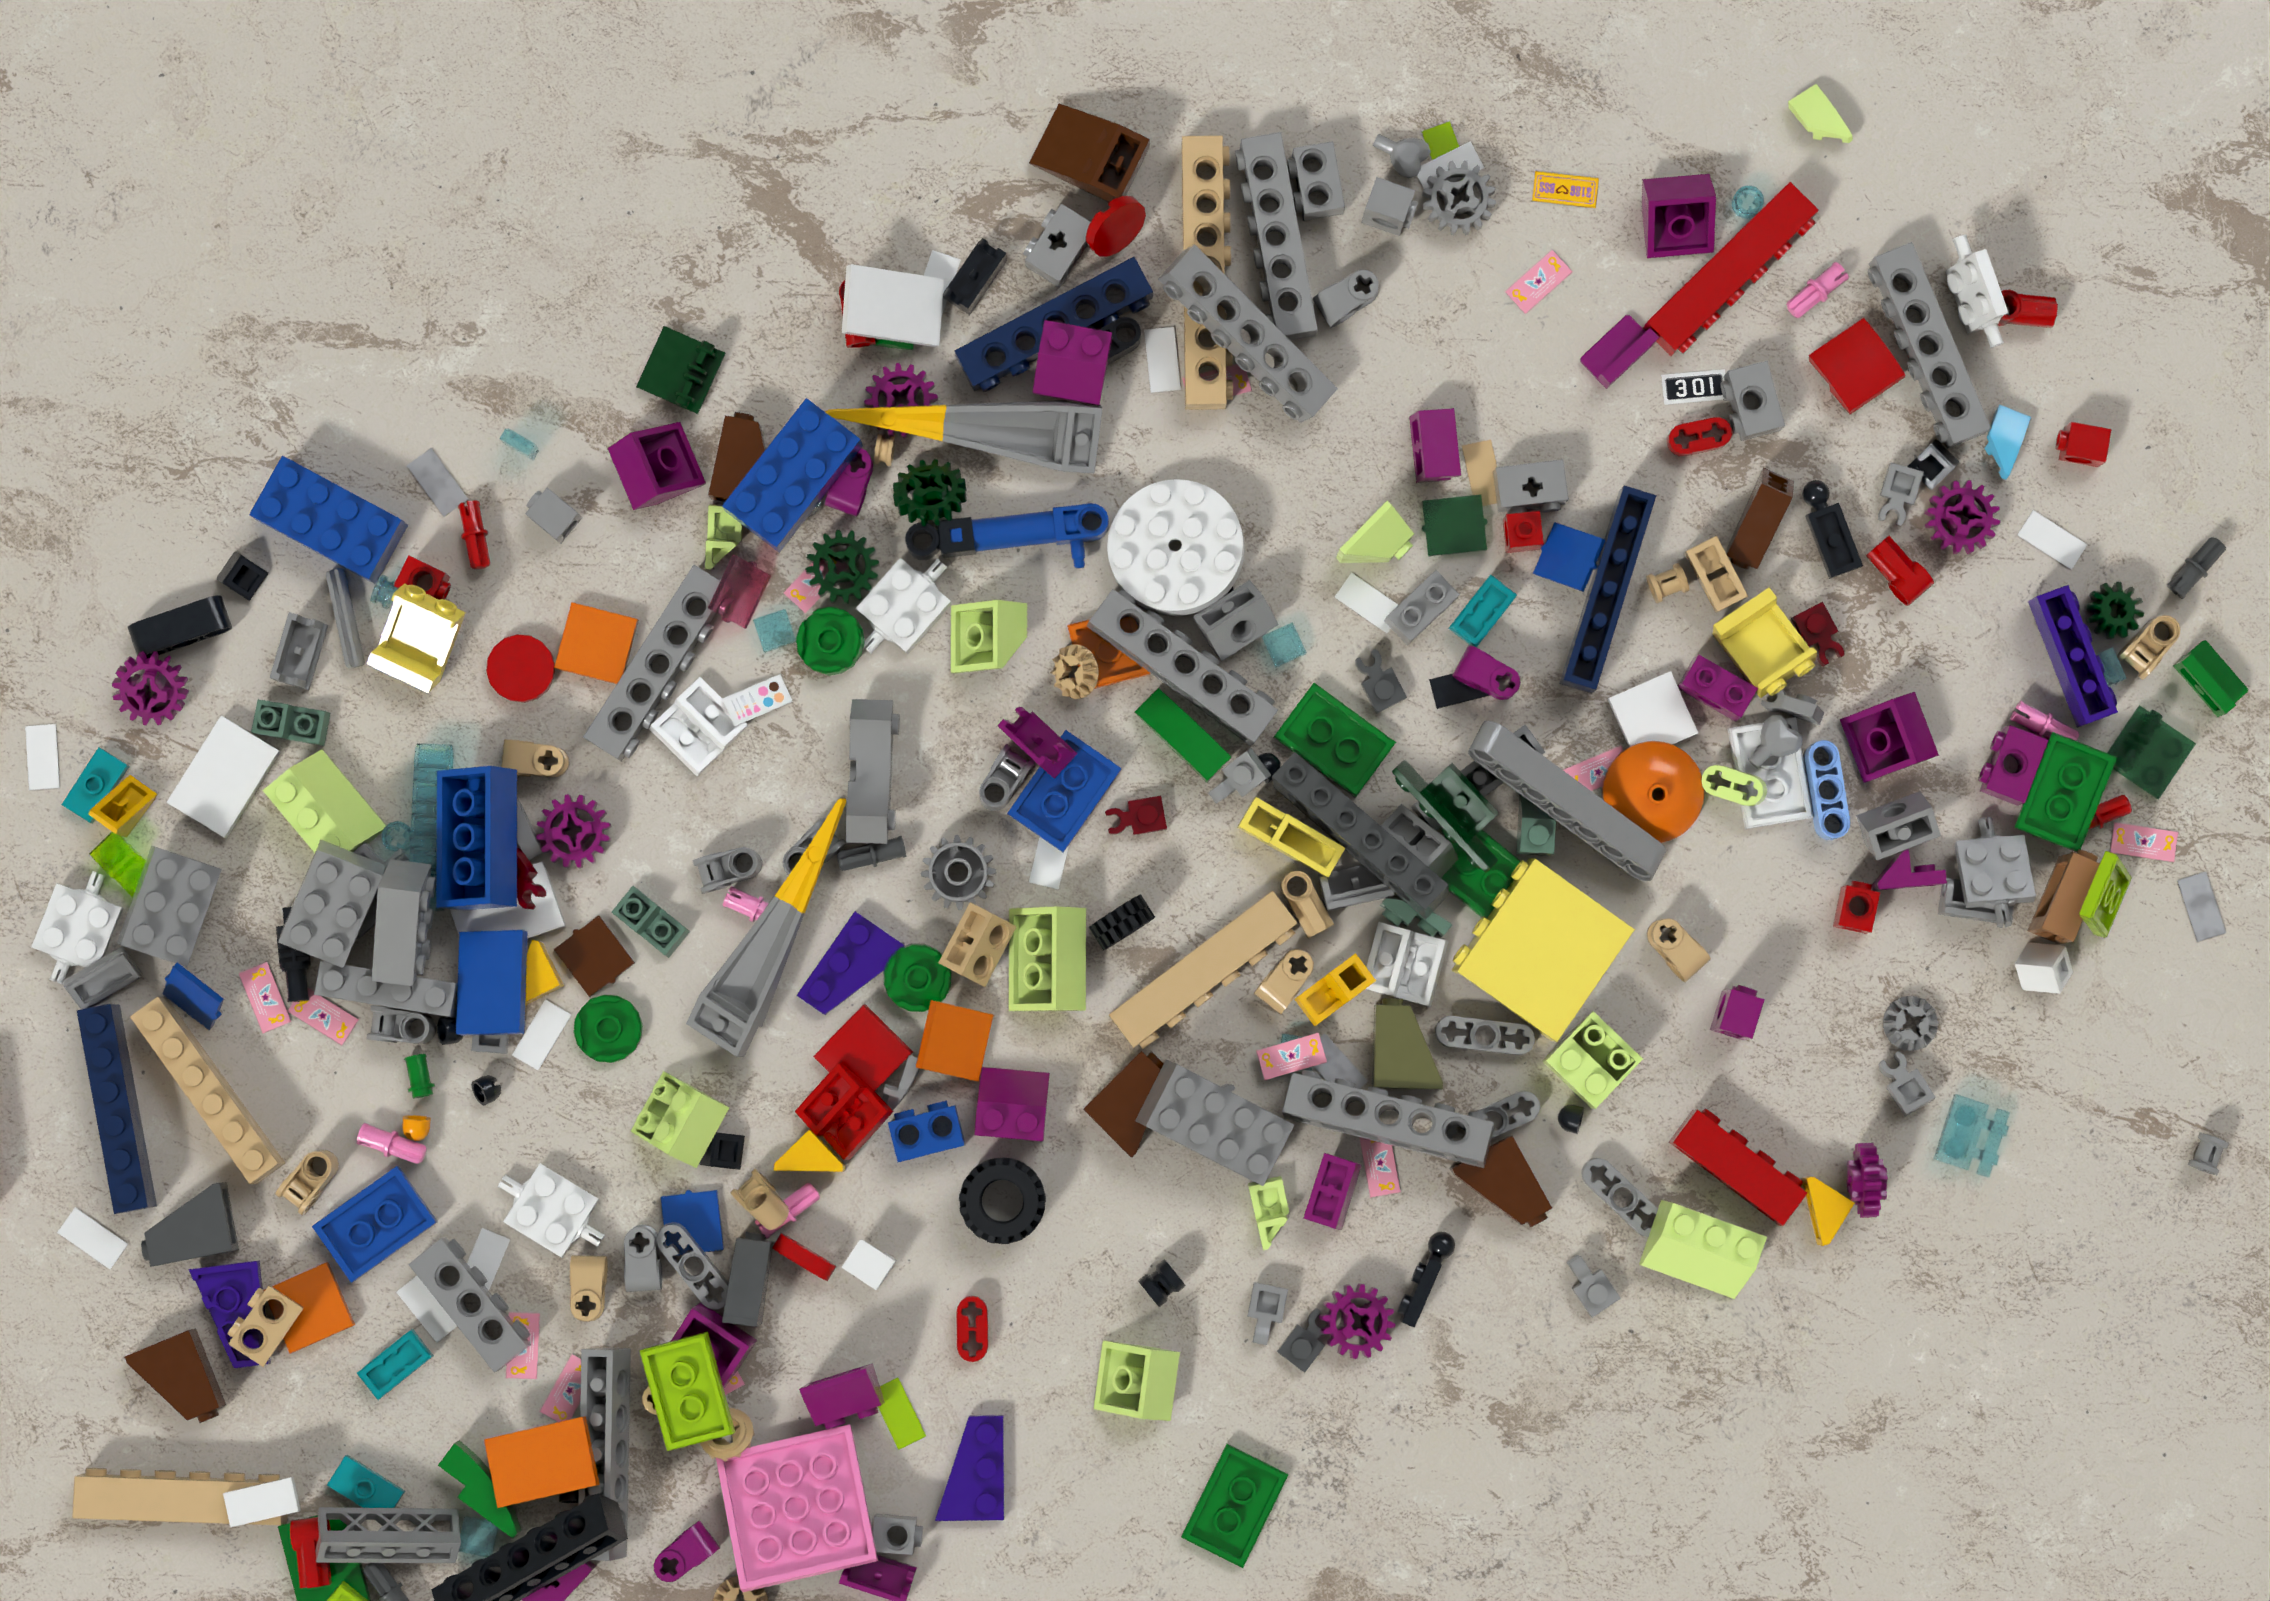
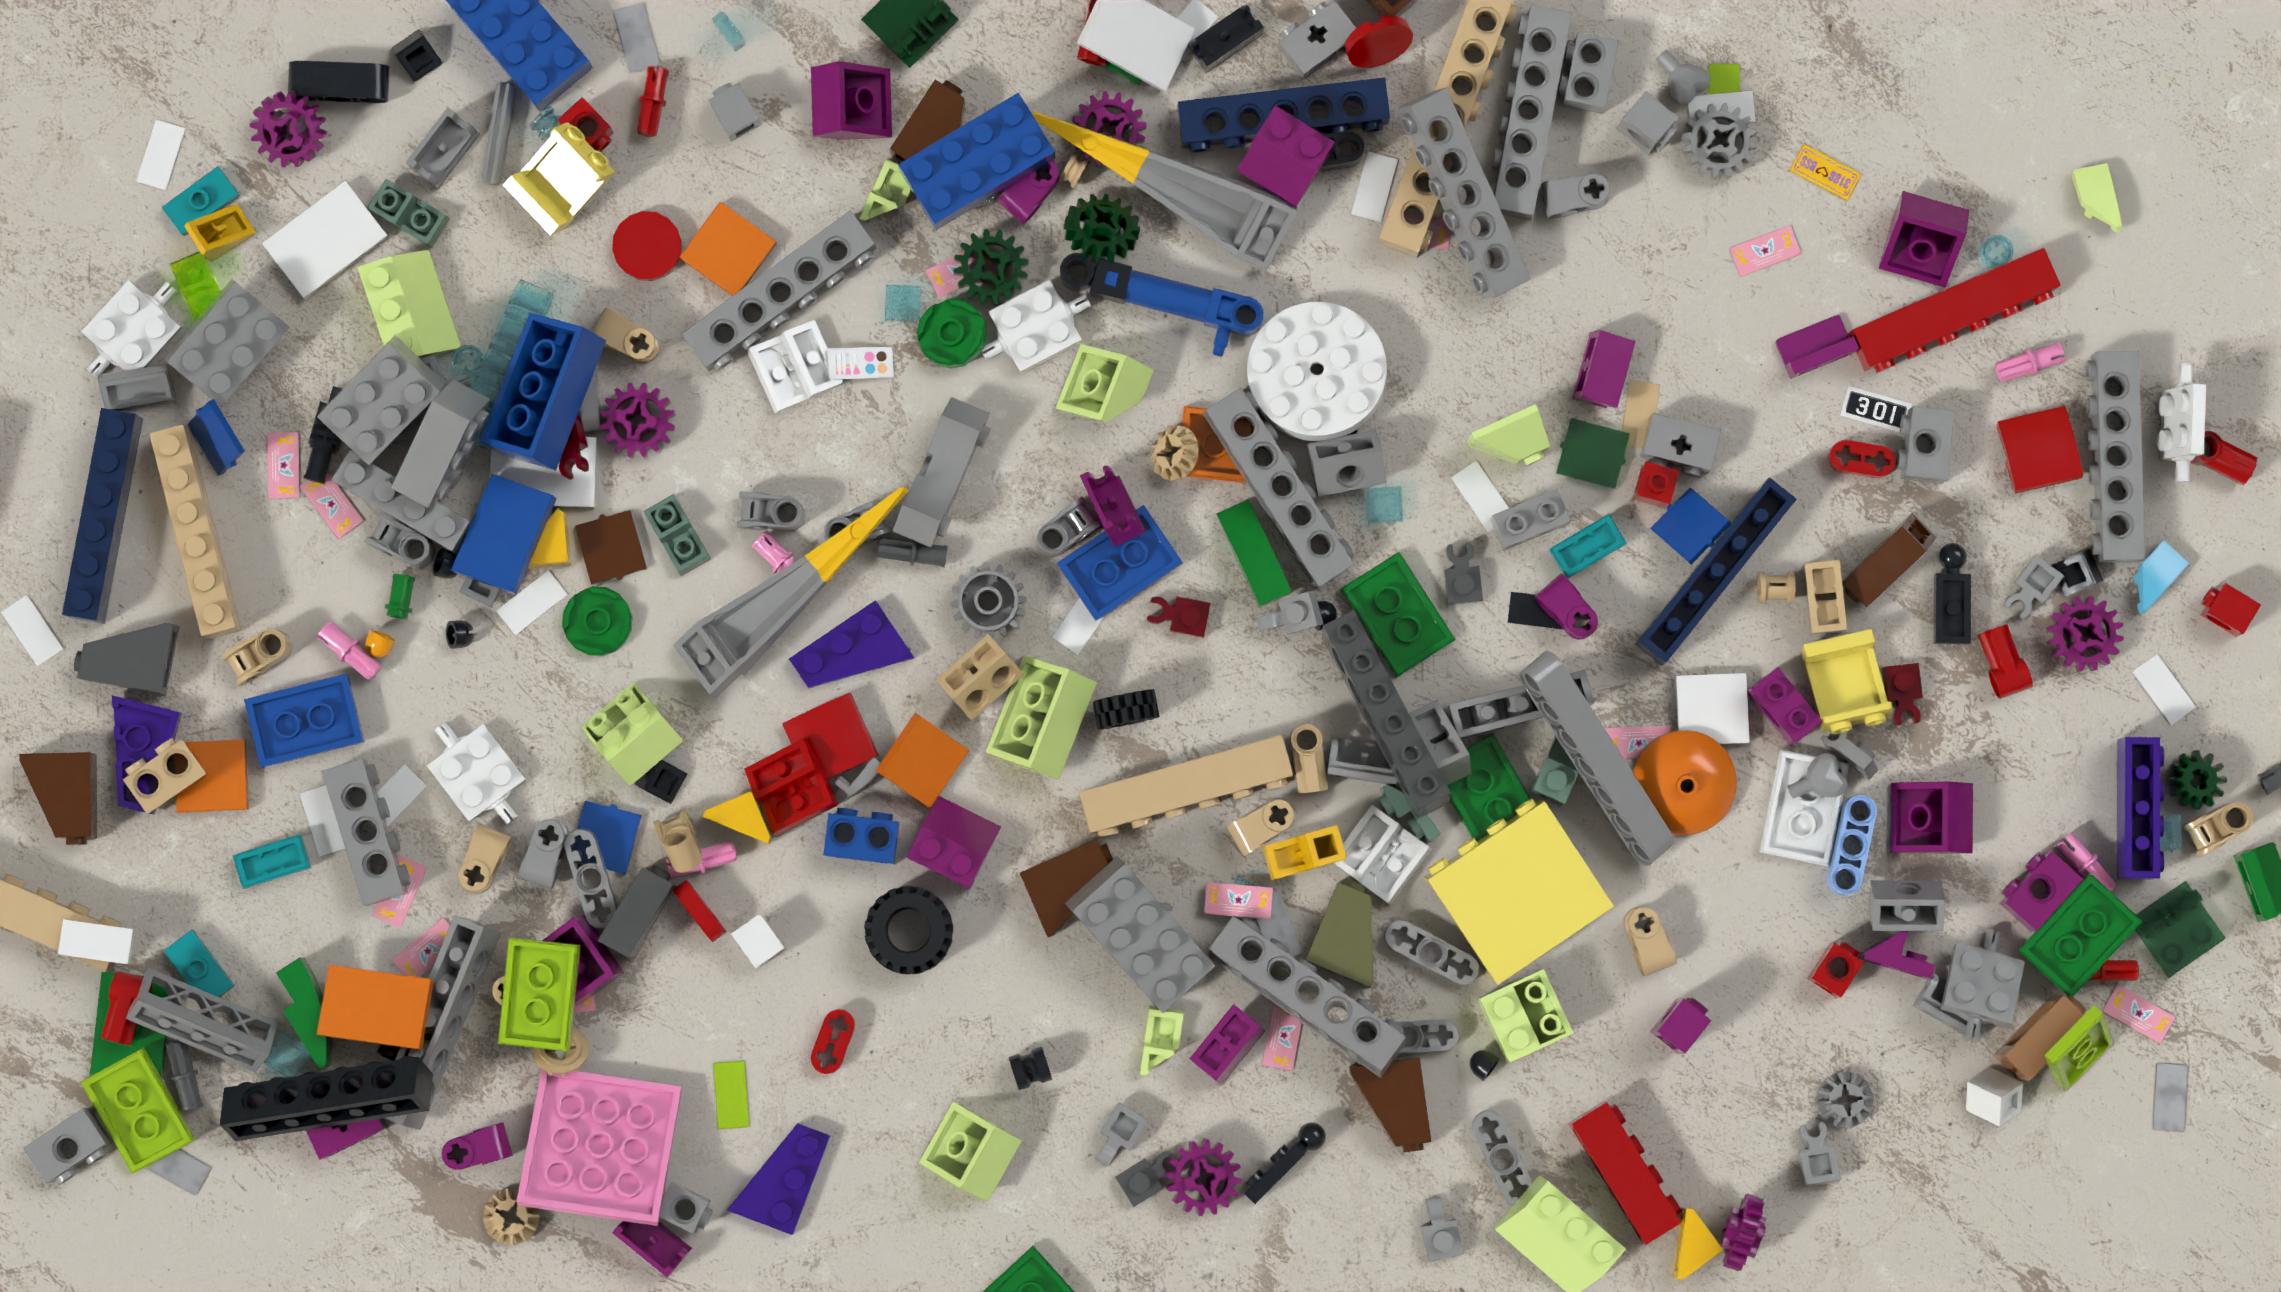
camera: 20 degrees right, 0 degrees up
(739, 591) = (883, 253): clear pink piece -> none
(843, 1396) = (686, 1057): magenta slope -> none
(916, 977) = (909, 686): green tile -> none
(1291, 837) = (1319, 691): light yellow slope -> none
(1455, 806) = (1486, 721): dark green bracket -> none
(1731, 793) = (1758, 812): yellowish green beam -> none
(1962, 1133) = (1852, 1225): clear light blue plate -> none

